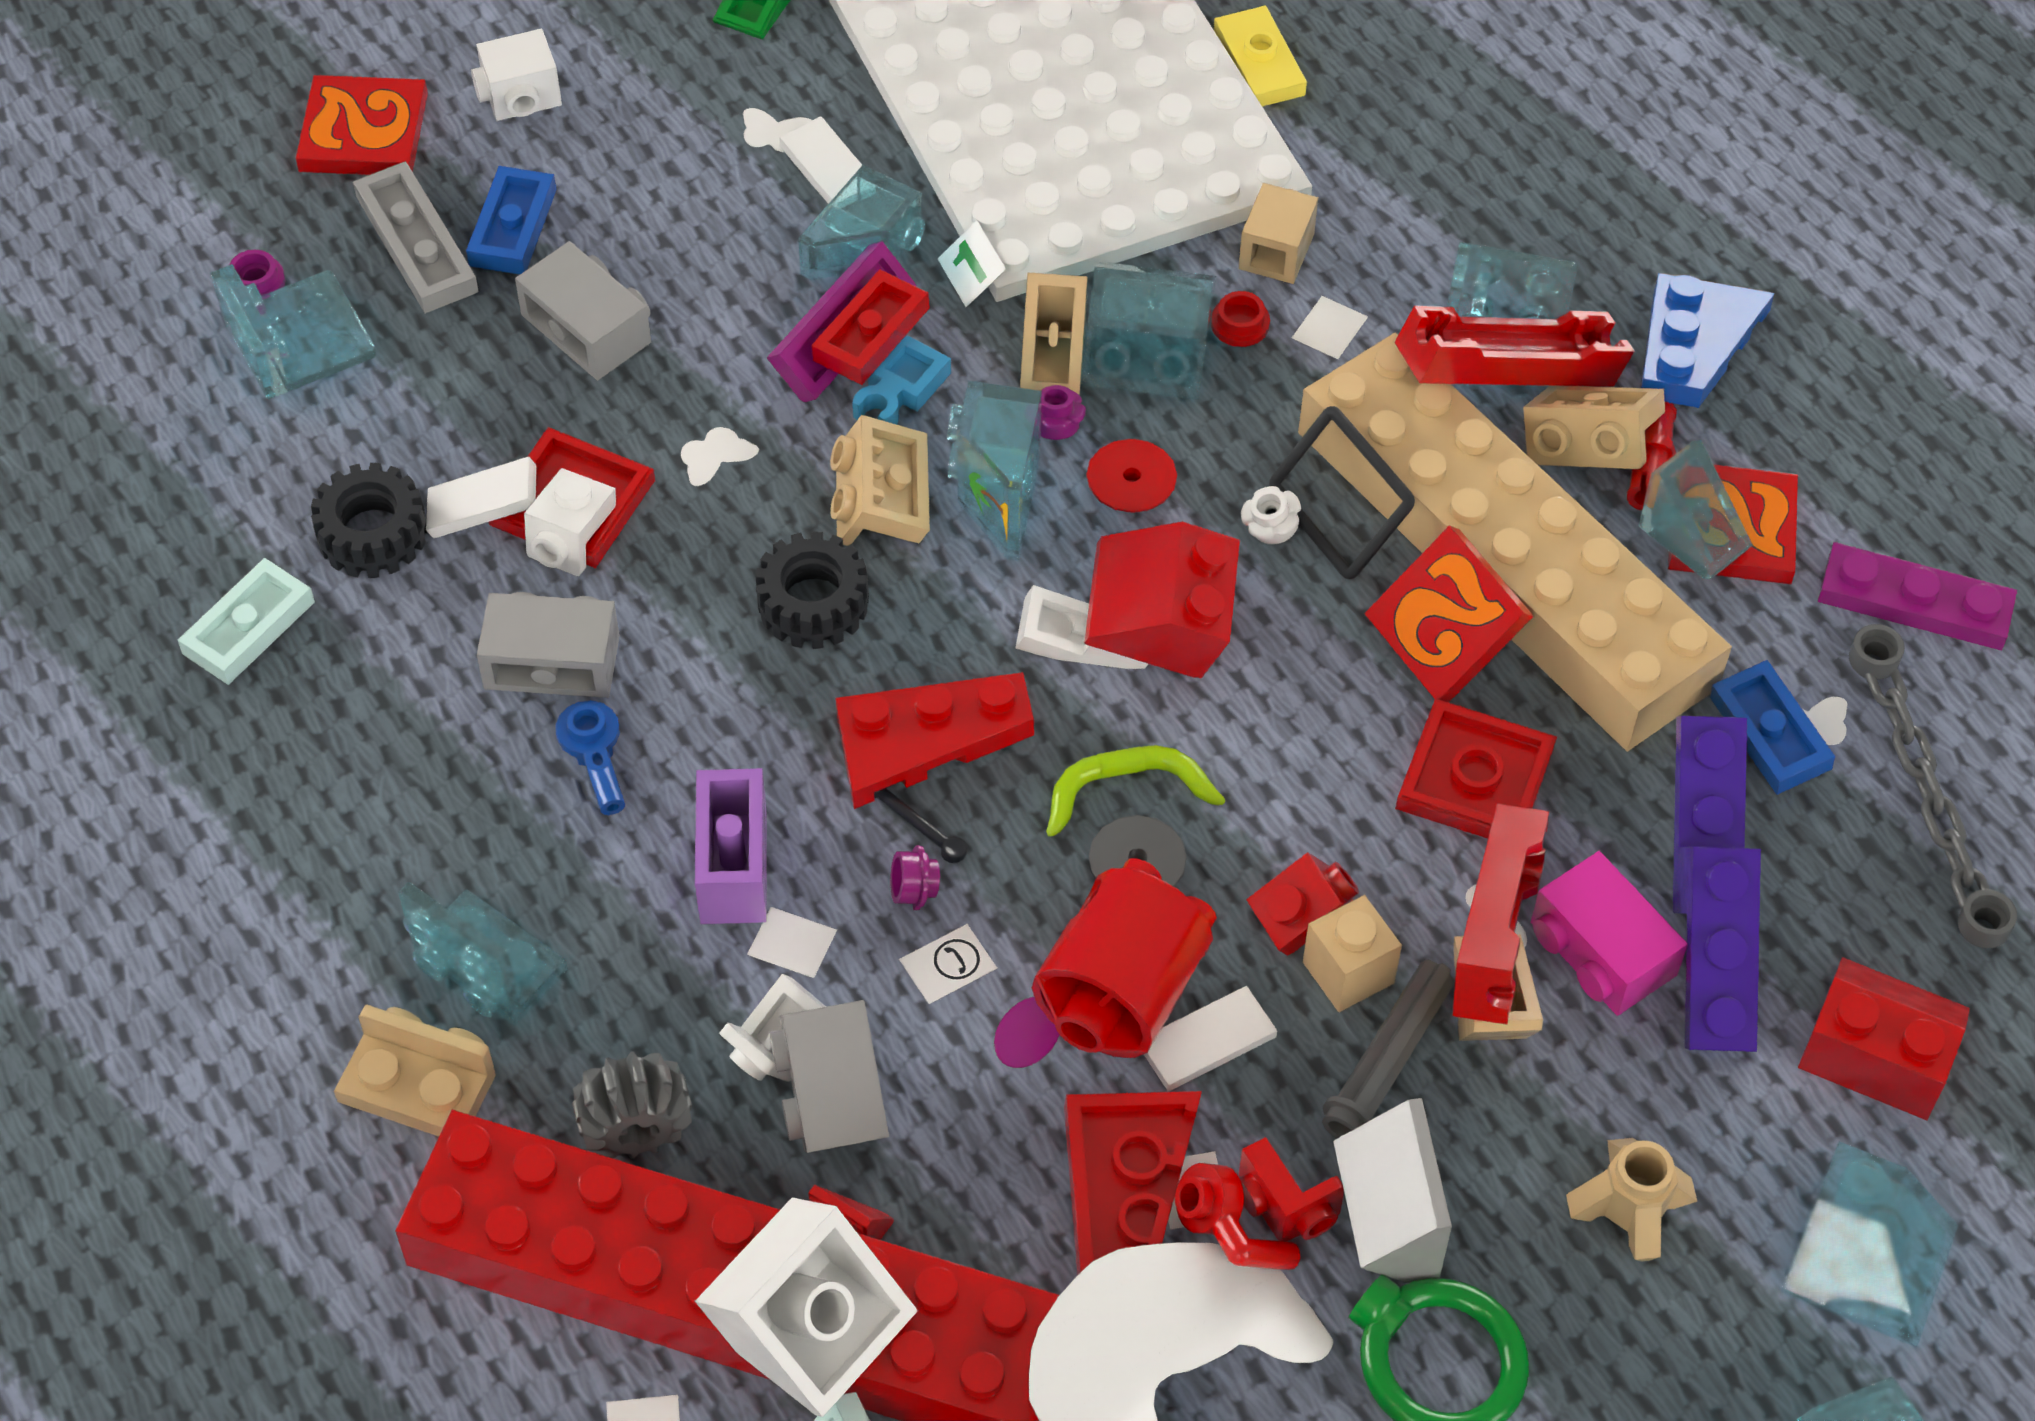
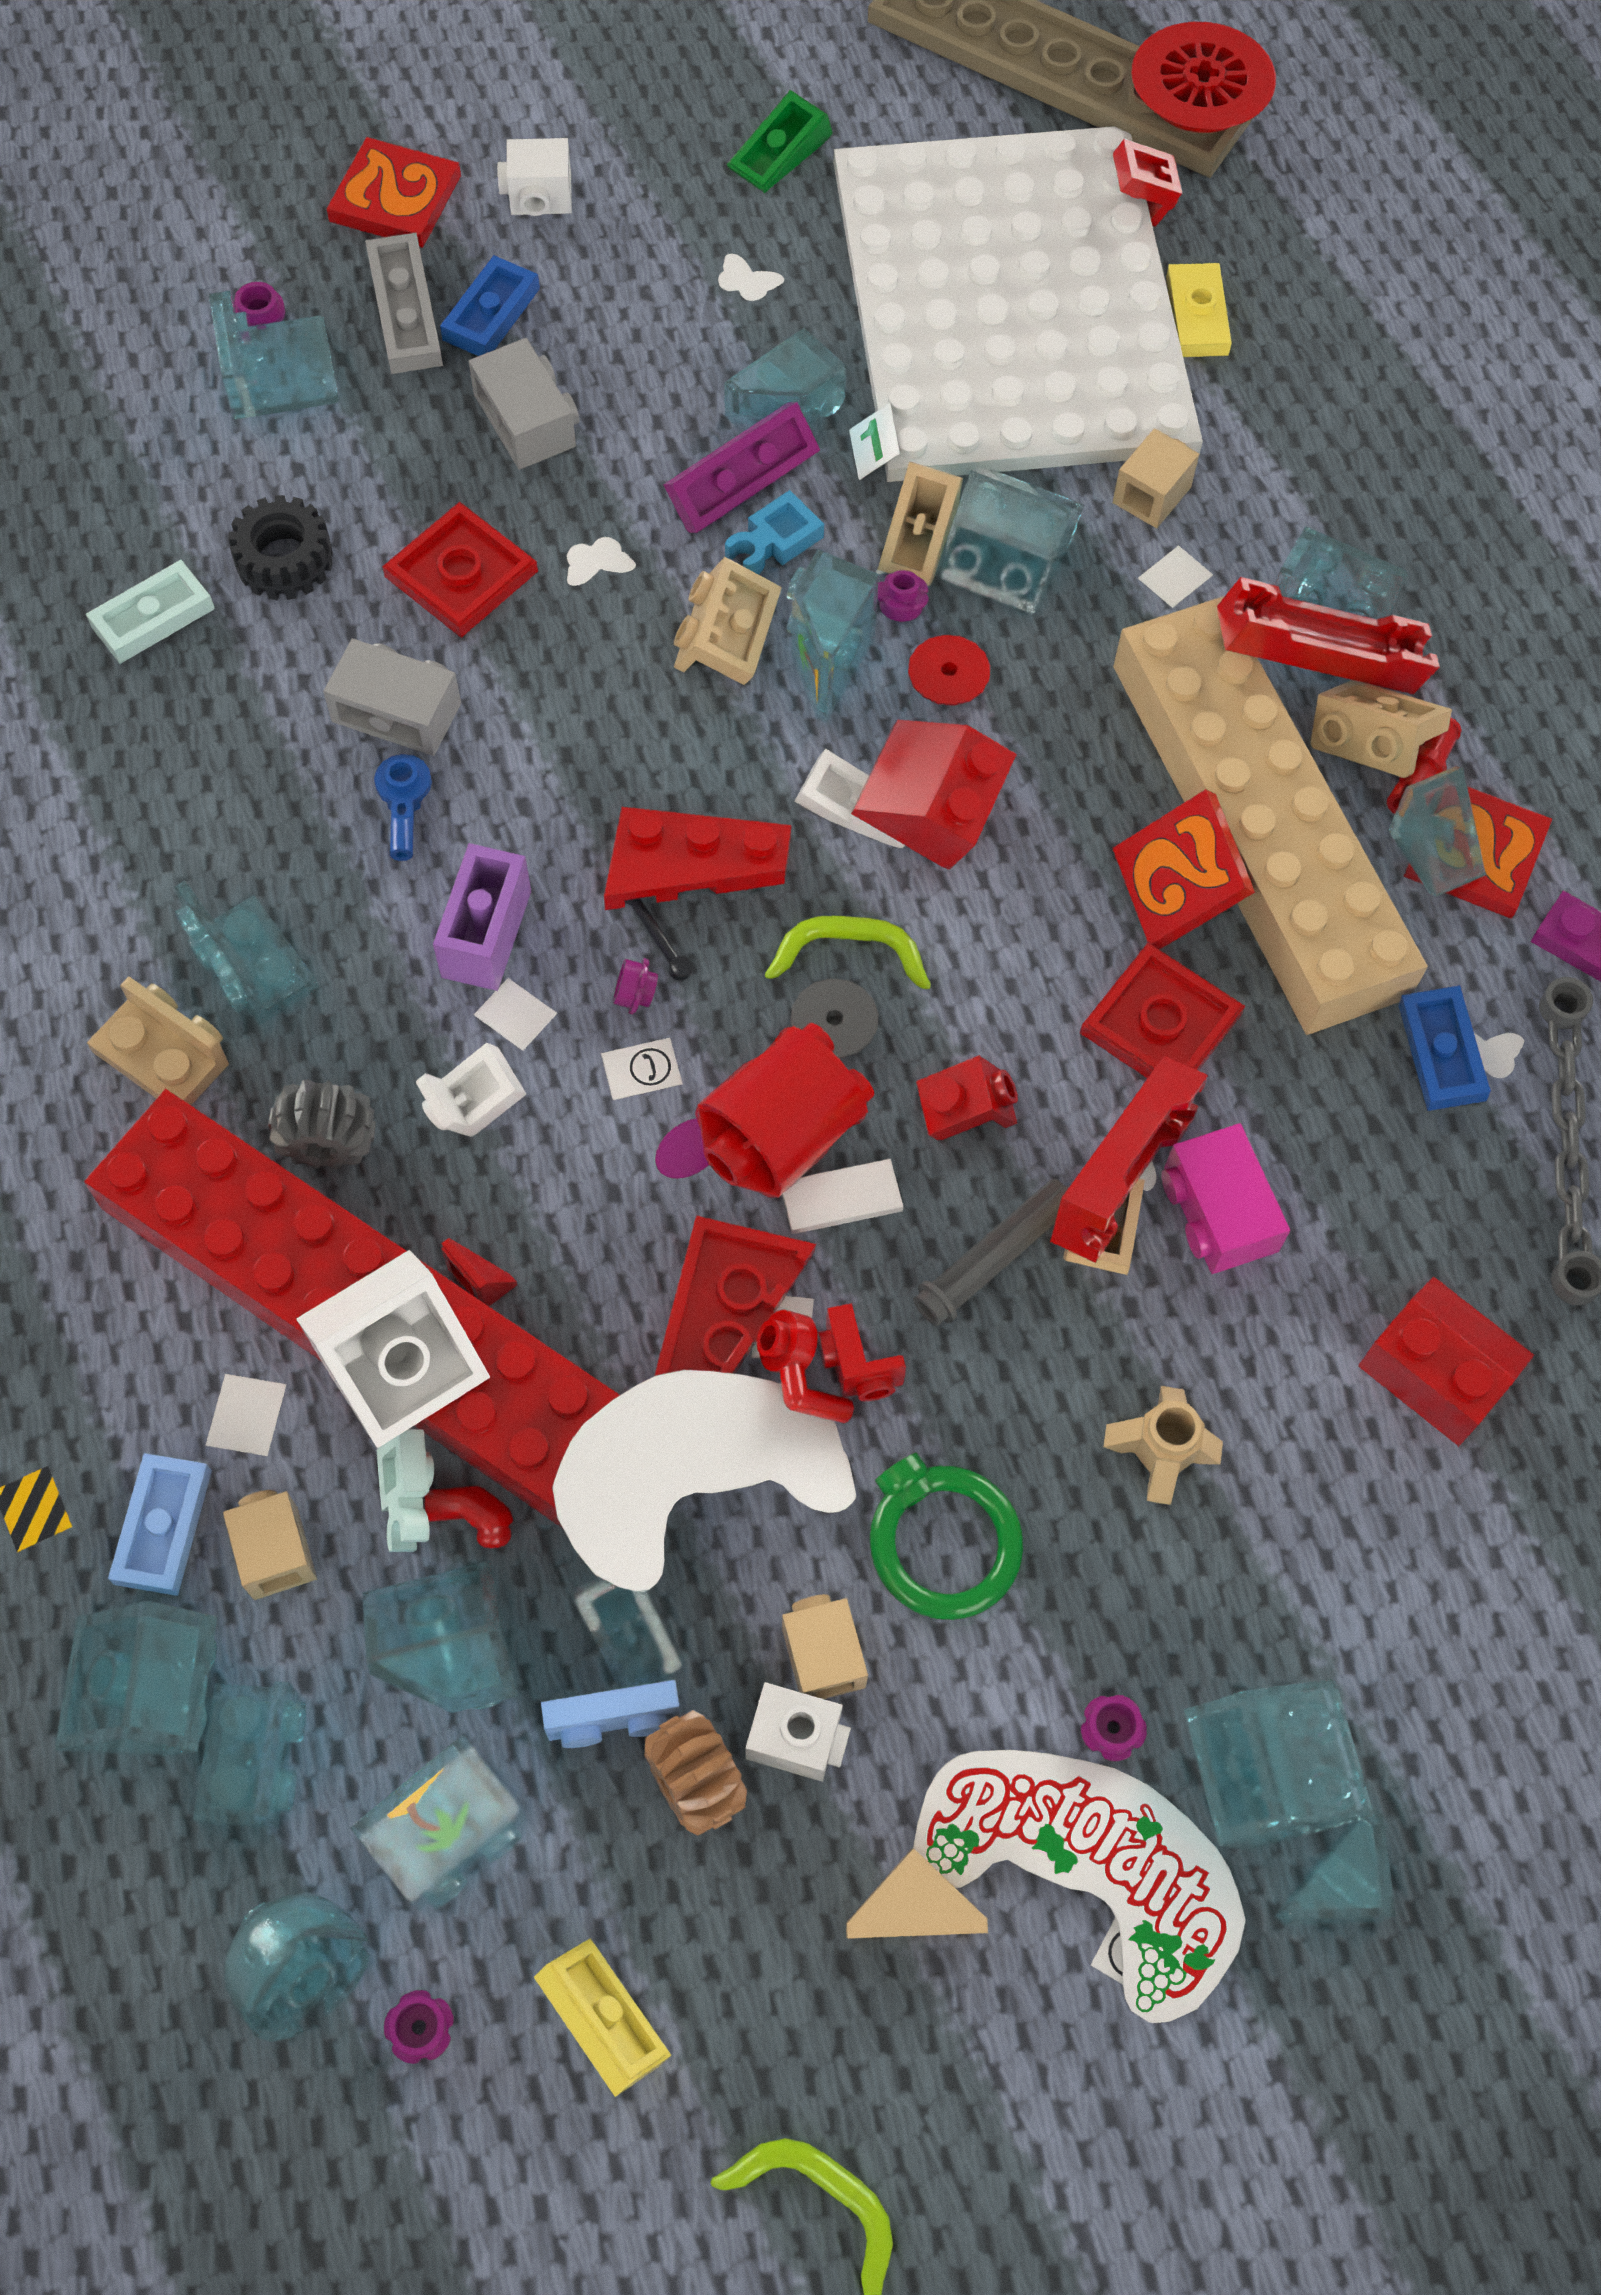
camera: 15 degrees right, 10 degrees up
(481, 497) = (380, 550): white piece -> none
(565, 520) = (444, 587): white bracket -> none
(813, 619) = (630, 677): black tyre -> none
(820, 156) = (776, 310): white piece -> none
(831, 1077) = (495, 1145): light grey brick -> none
(870, 327) = (761, 478): red plate -> none
(1240, 319) = (1095, 550): red plate -> none
(1272, 527) = (1065, 747): white plate -> none
(1335, 414) = (1118, 805): black piece -> none
(1351, 953) = (989, 1156): tan brick -> none
(1395, 1194) = (942, 1387): slope -> none
(1696, 333) = (1504, 663): wing -> none
(1716, 884) = (1337, 1181): dark purple bracket -> none
(1872, 1246) = (1364, 1550): clear light blue slope -> none

